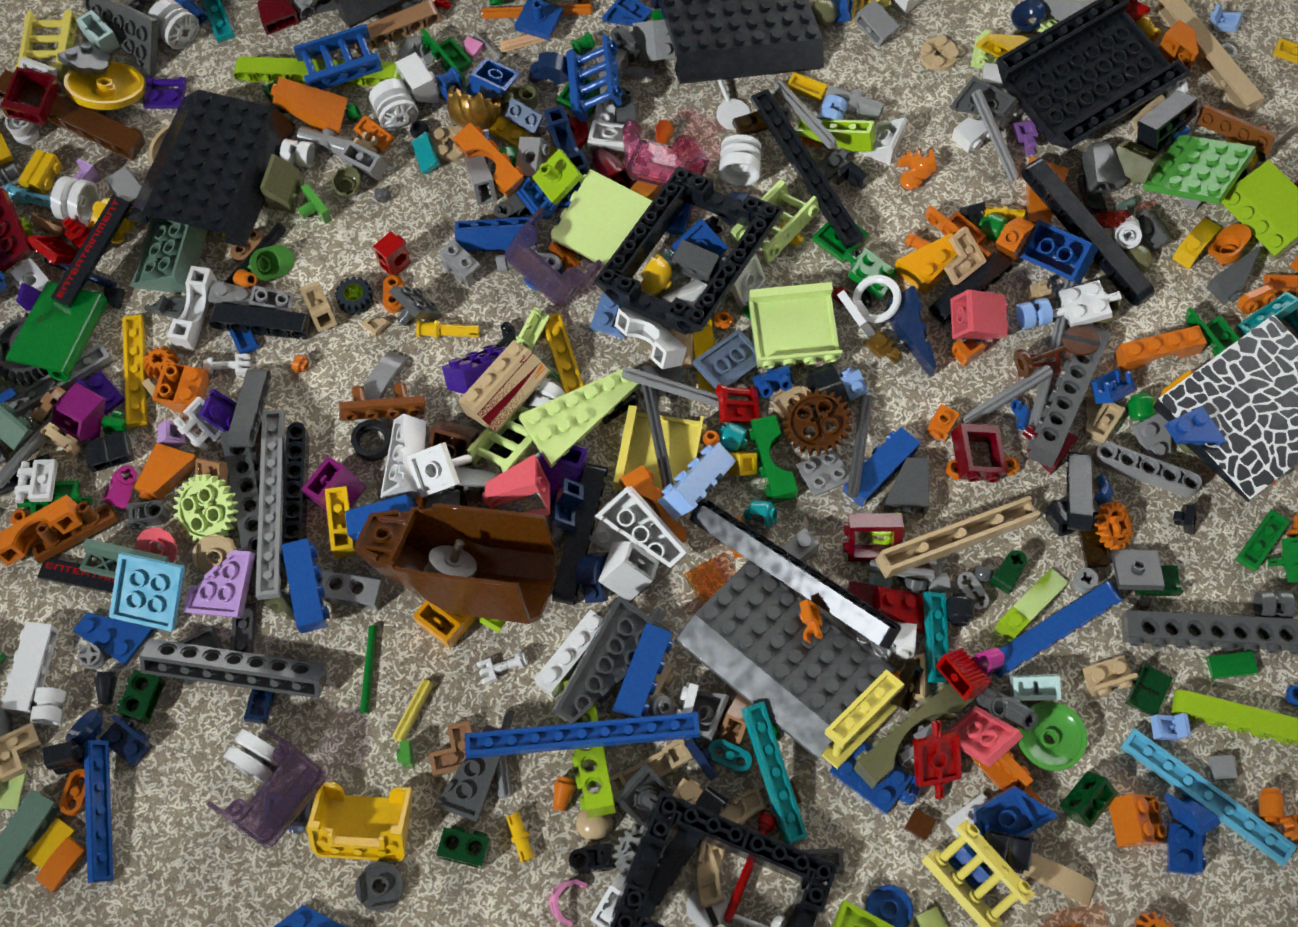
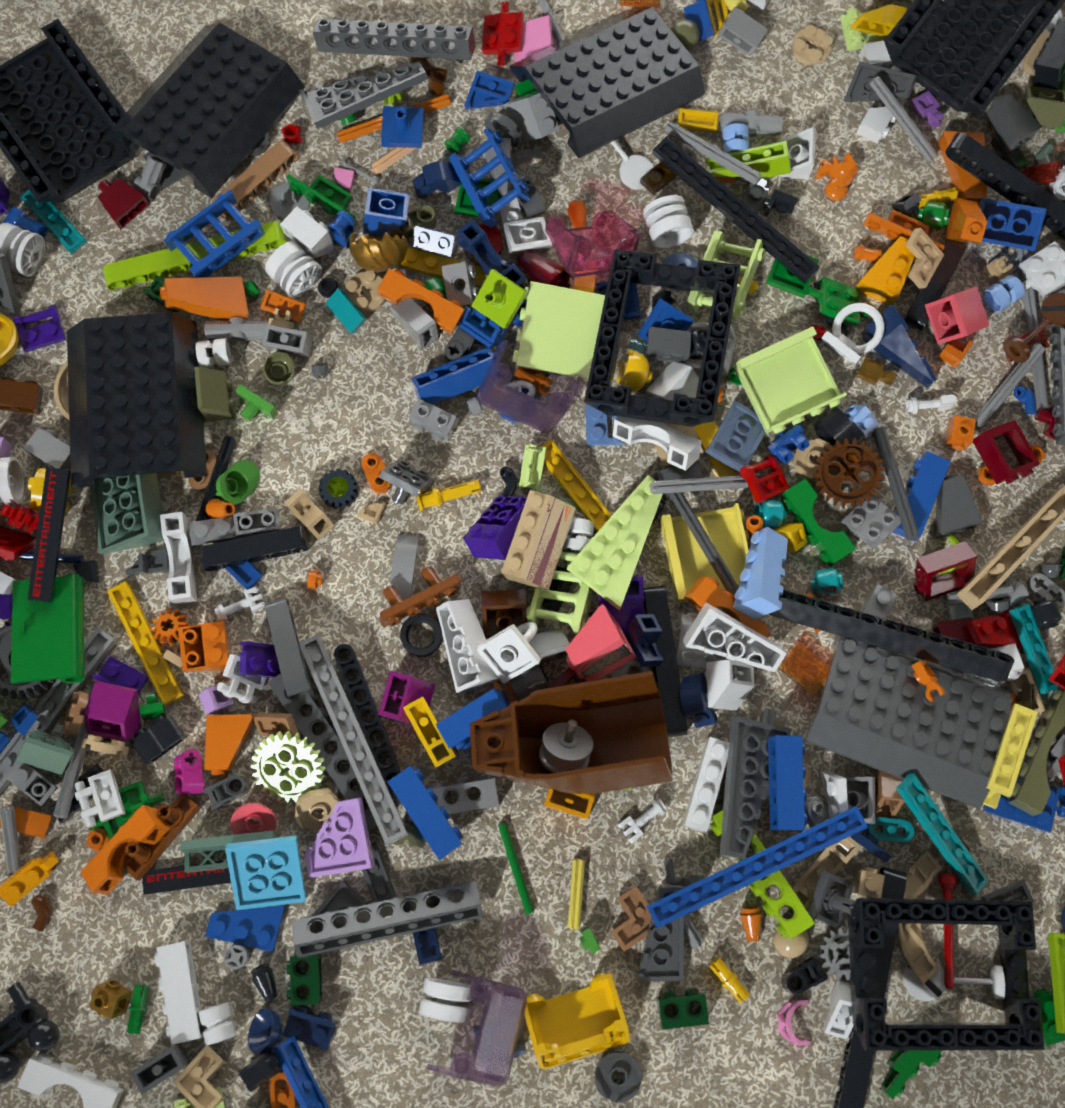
camera: 25 degrees left, 10 degrees up
(392, 253) = (361, 433): red brick -> none
(938, 392) = (943, 403): none -> white hinge

